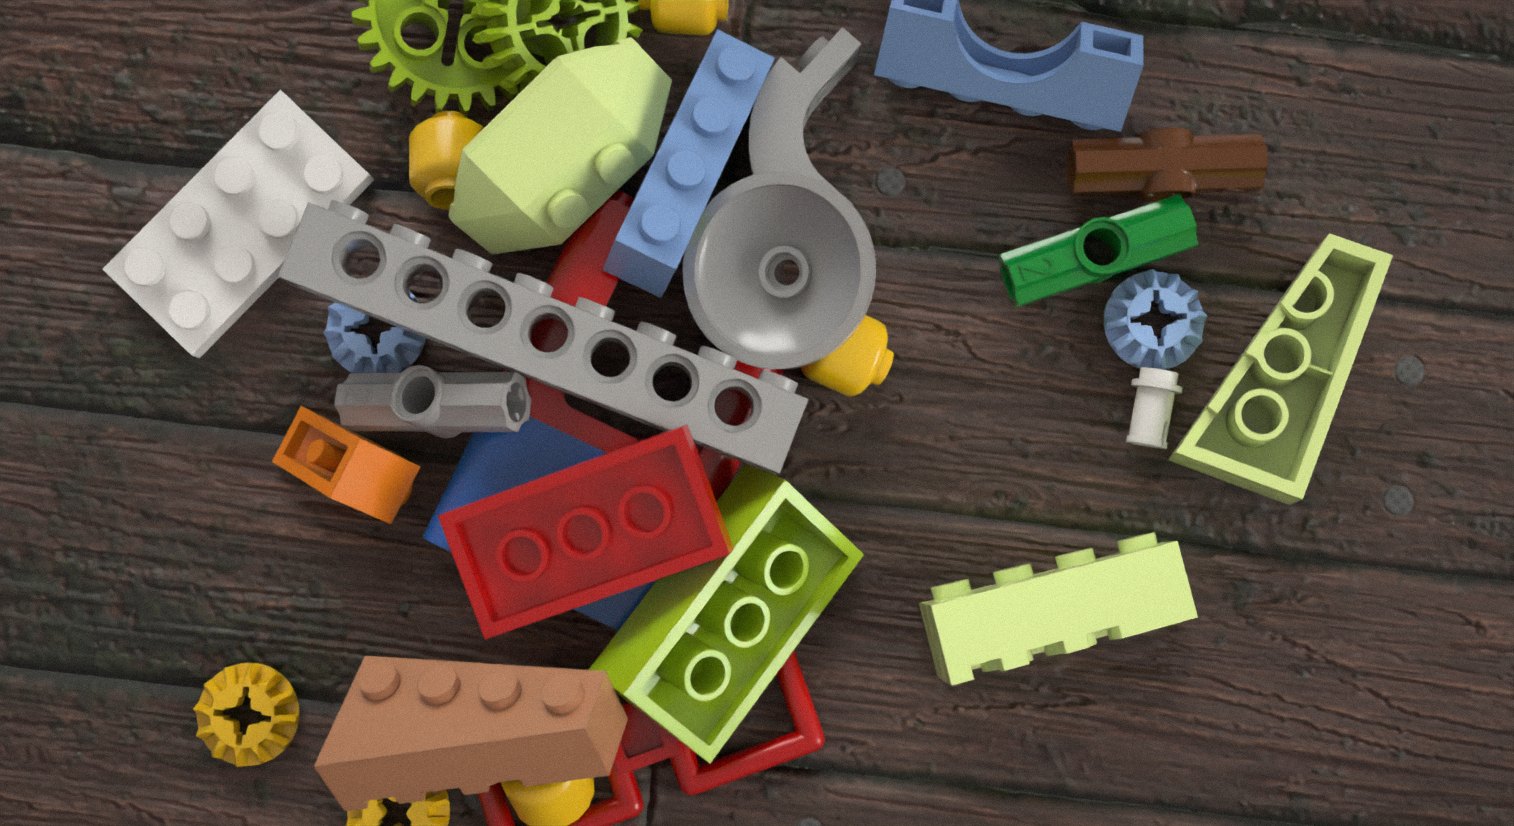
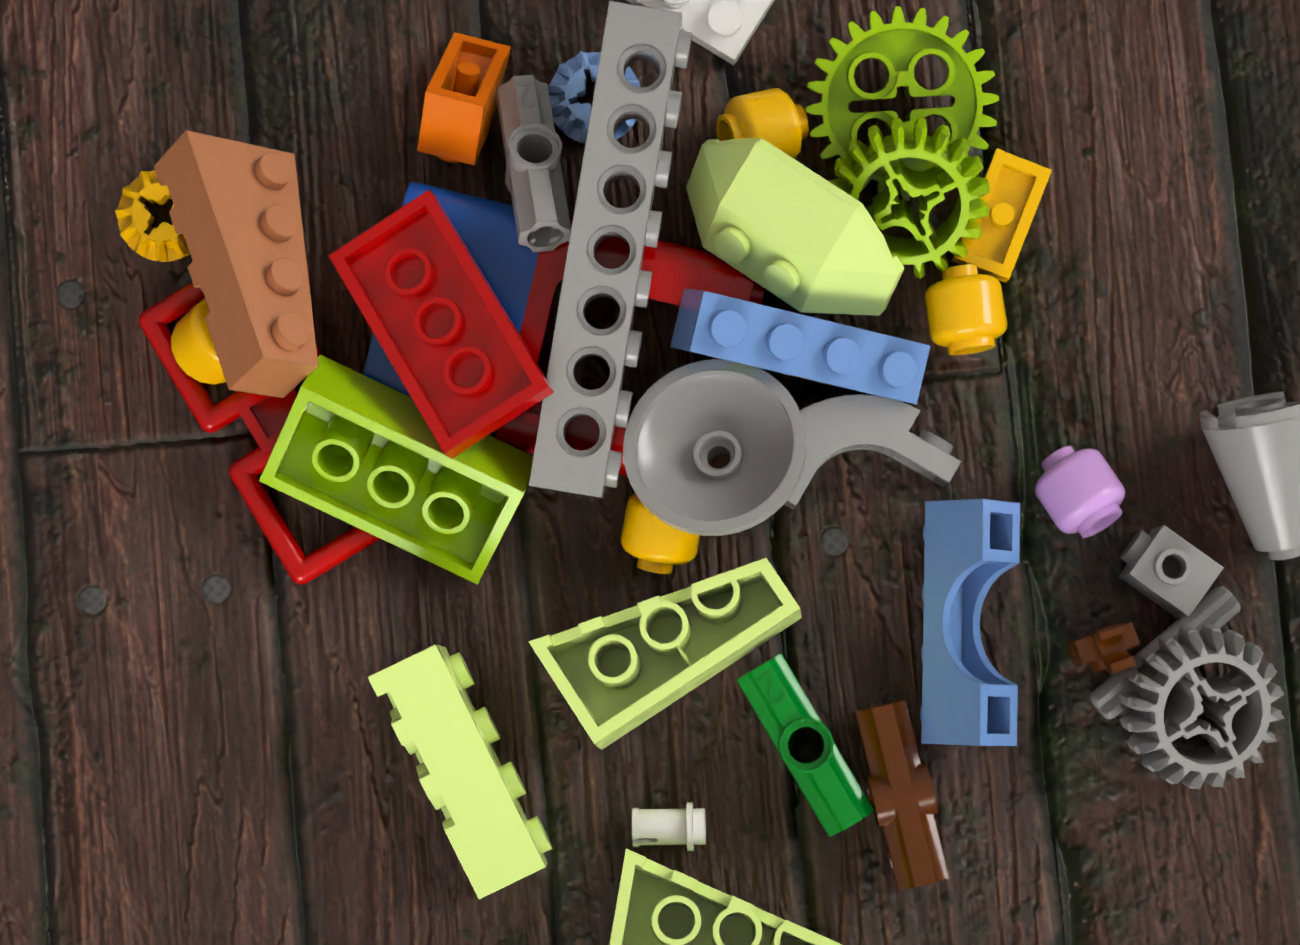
camera: 80 degrees right, 0 degrees up
(268, 693) = (243, 79): yellow gear -> none
(975, 384) = (652, 654): none -> yellowish green wedge
(1136, 342) = (728, 799): light blue gear -> none

